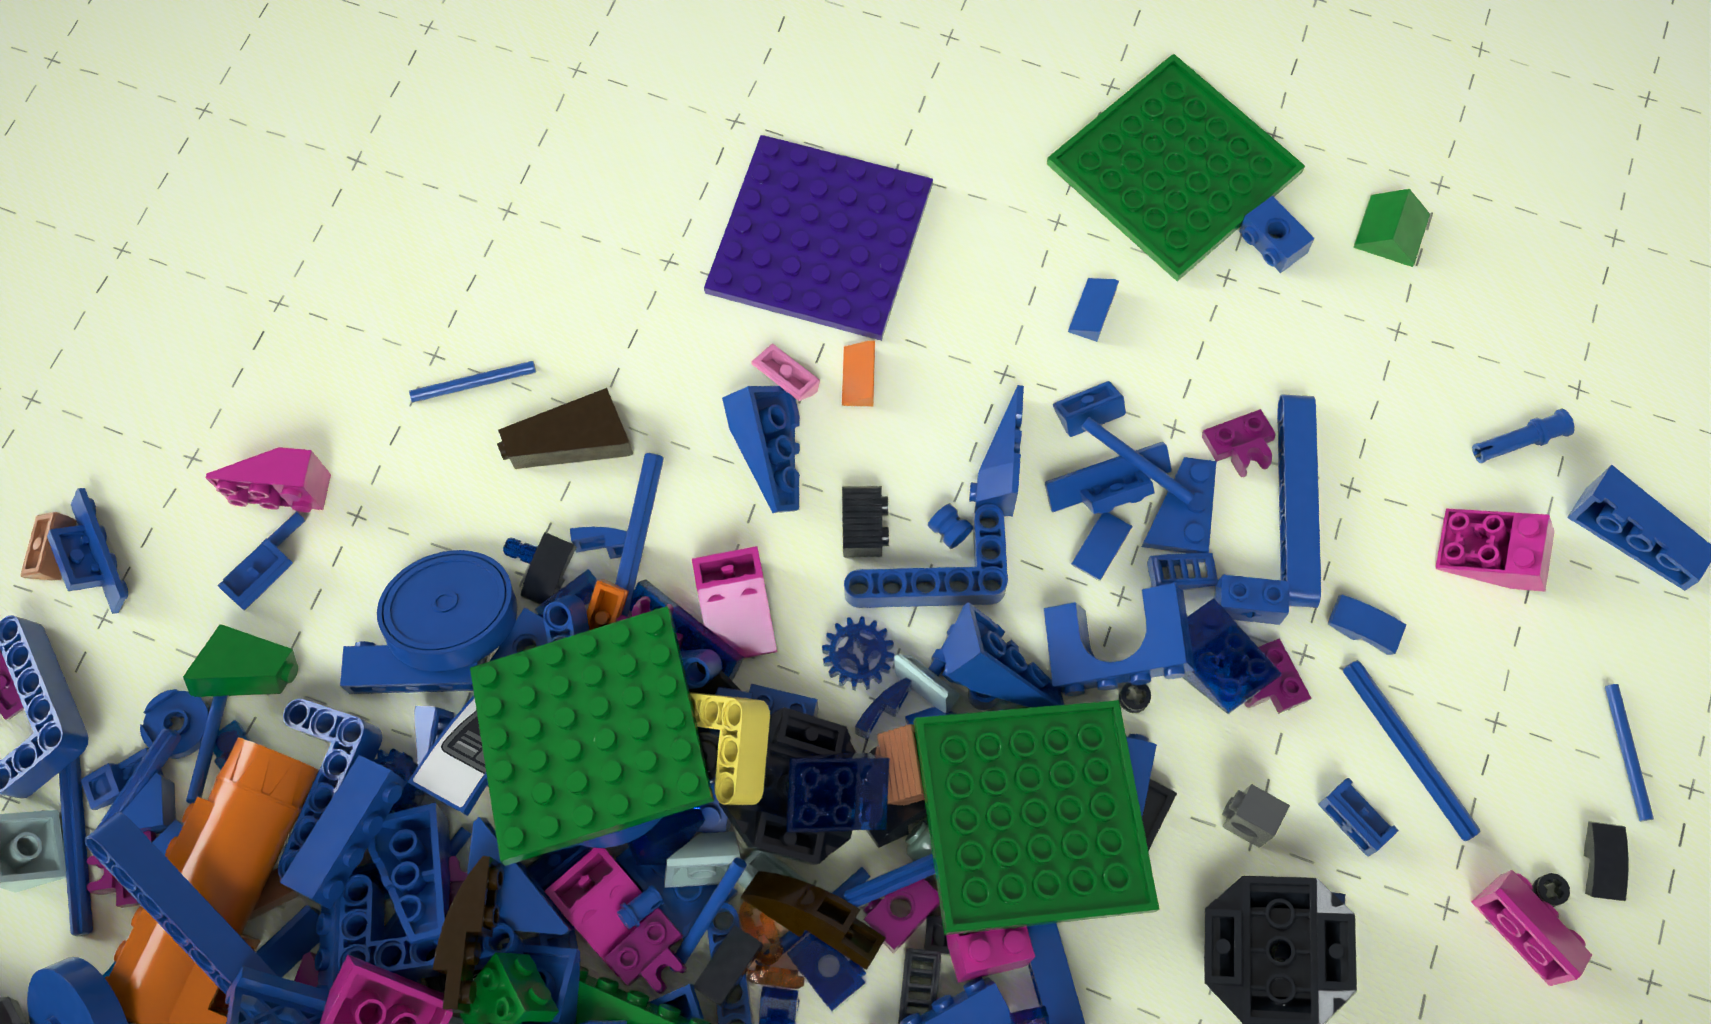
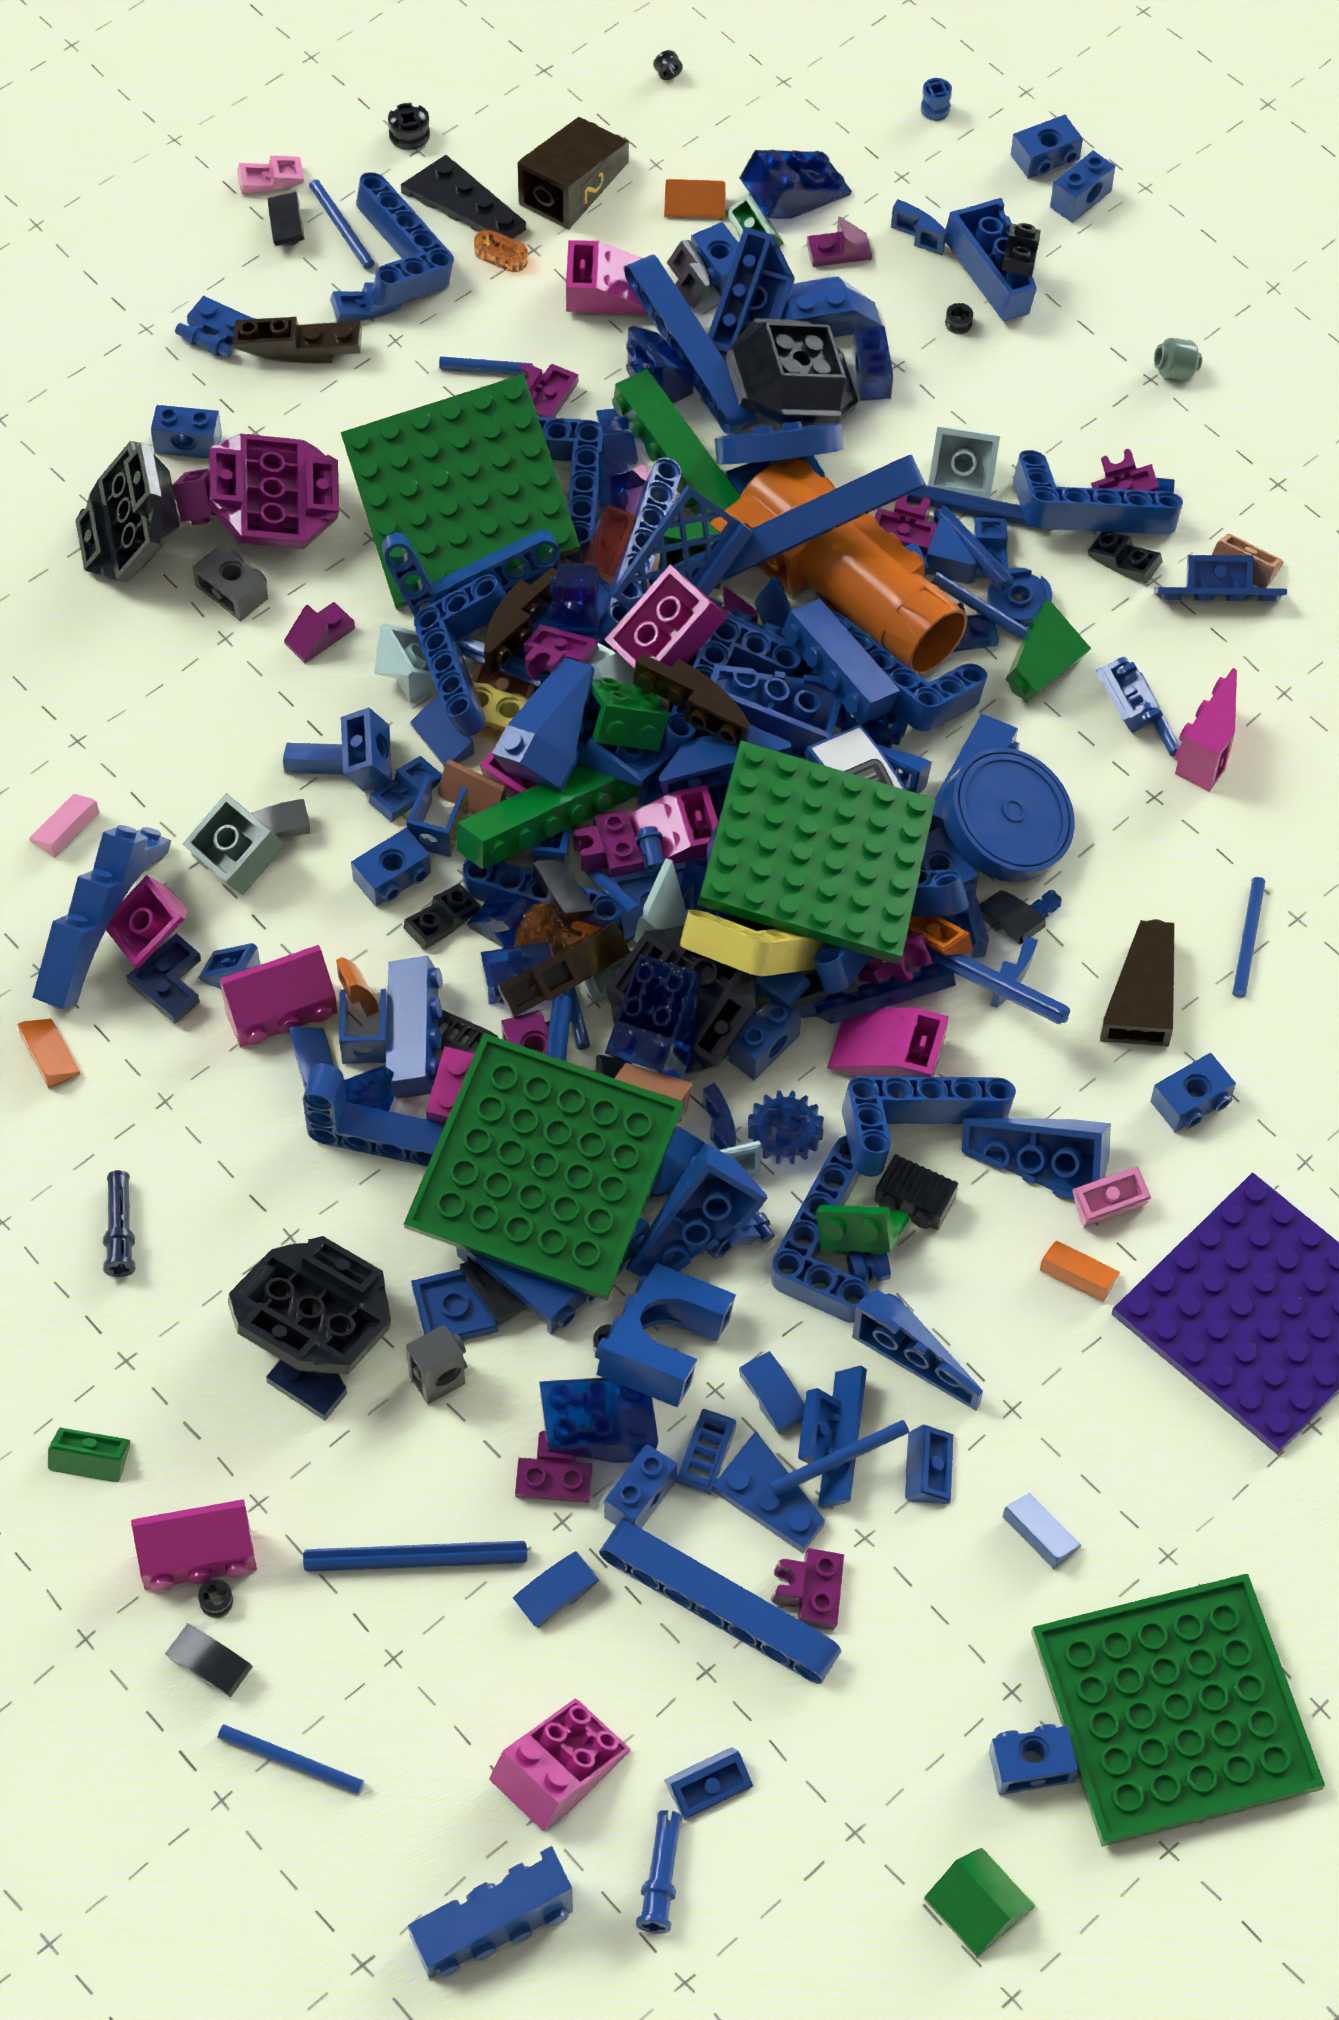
camera: 115 degrees right, 10 degrees down
(87, 652) = (1120, 555): none -> black slope
(662, 370) = (1202, 1077): none -> blue brick
(788, 554) = (885, 1100): none -> blue beam
(926, 536) = (859, 1228): none -> green bracket
(1183, 846) = (451, 1302): none -> blue tile
(1357, 818) = (383, 1467): blue hinge -> none
(1432, 443) = (709, 1782): none -> blue slope

